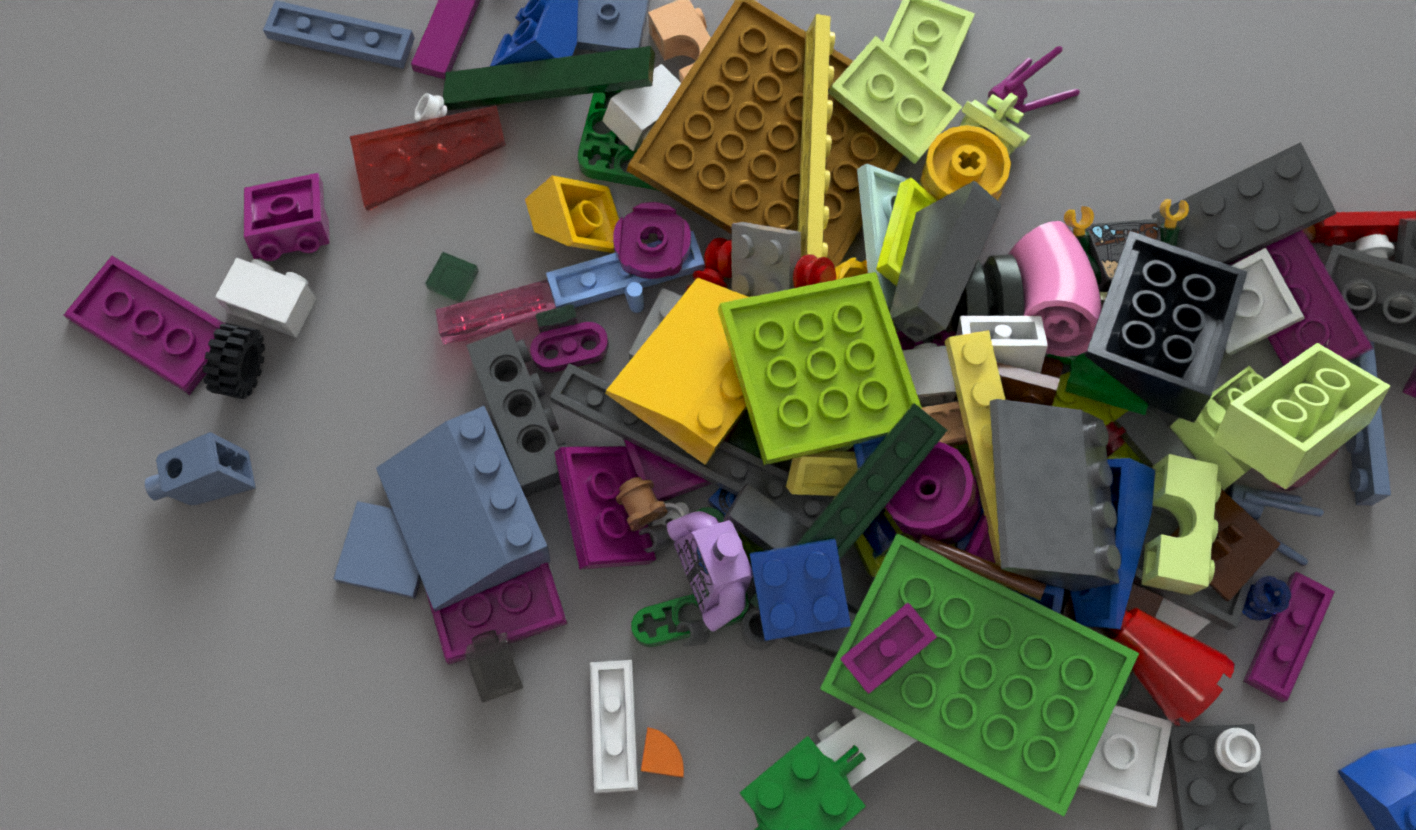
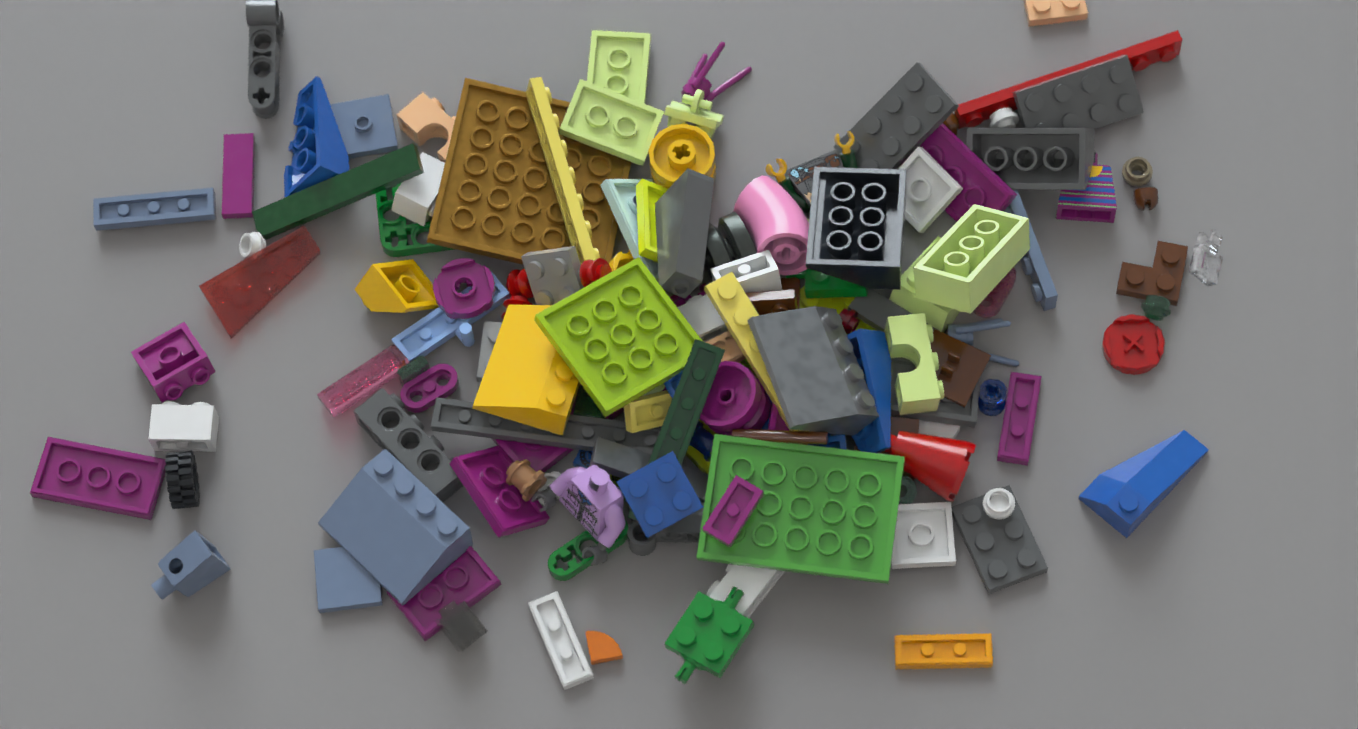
camera: 15 degrees left, 5 degrees down
(452, 277) = (318, 366): clear green tile -> none

